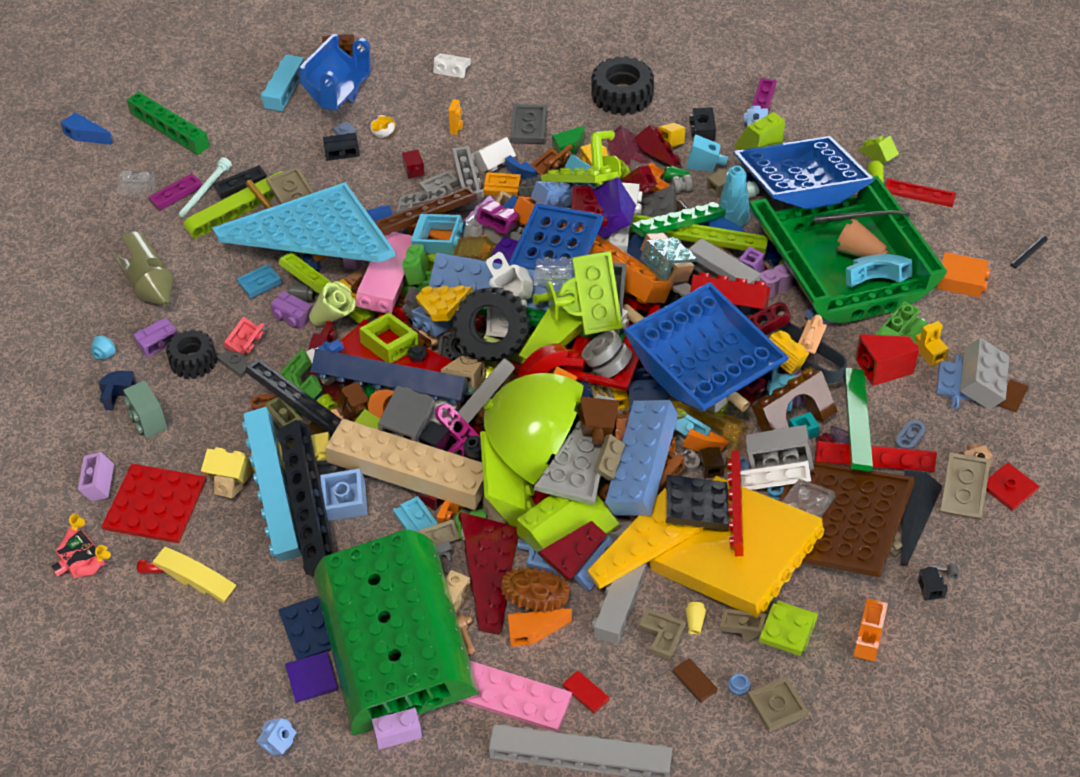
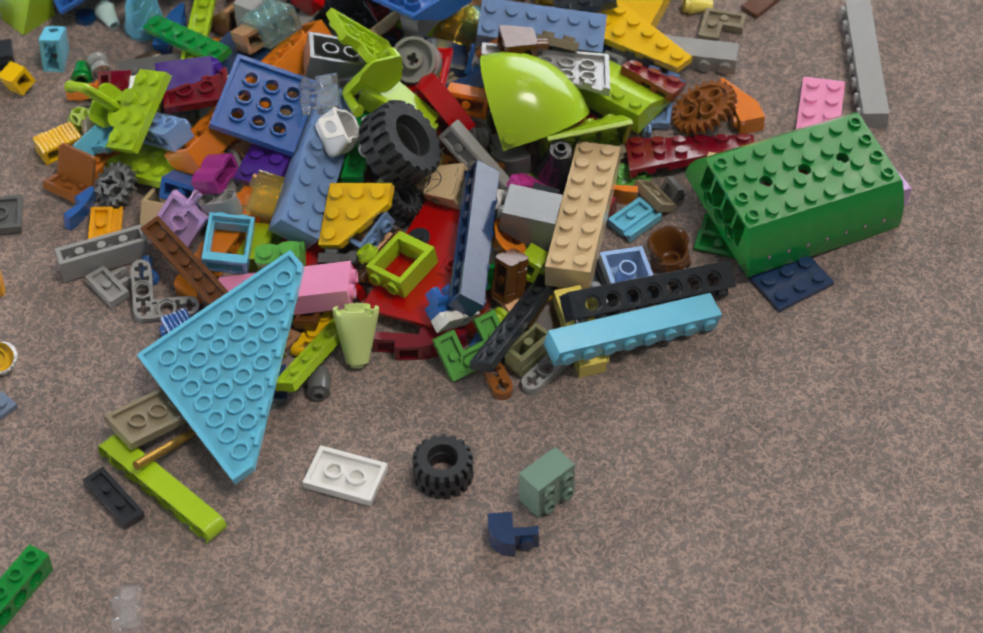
camera: 100 degrees left, 0 degrees up
(78, 553) = (765, 497): torso -> none
(95, 476) = (655, 509): lavender brick -> none
(102, 348) = (446, 568): medium azure cone -> none
(144, 567) = (760, 428): red arm -> none
(149, 282) = (323, 540): olive piece -> none
(154, 337) = (417, 516): medium lavender brick -> none
(154, 503) = (669, 455): red plate -> none
(175, 191) = (138, 569): magenta plate -> none
(194, 573) = (759, 387): light yellow slope -> none
(210, 302) = (345, 475): none -> white plate
(223, 166) = (81, 525): light aqua piece -> none
(226, 464) = (612, 383): light yellow slope -> none
(226, 486) = (637, 382): tan bracket -> none
(234, 361) = (443, 424): dark grey plate -> none
(243, 335) = (403, 421): coral bracket -> none
(259, 281) = (301, 433): dark azure plate -> none
(276, 736) = (936, 267): light blue brick -> none
(291, 310) = (350, 385): medium lavender brick -> none
(311, 677) = (848, 267): dark purple tile -> none
(341, 146) = (40, 398): black brick -> none
(363, 527) = (668, 249): none -> reddish brown hair
(403, 315) = (367, 253): none -> lime plate
(413, 163) = (77, 311): dark red brick -> none
(493, 155) = (46, 234): white slope -> none
(573, 136) = (28, 171): green slope -> none
(586, 692) = (797, 69): red tile -> none
(626, 147) = (38, 119): clear pink slope -> none
(653, 143) = (33, 92): dark red slope -> none
(716, 182) = (97, 34): dark tan brick -> none

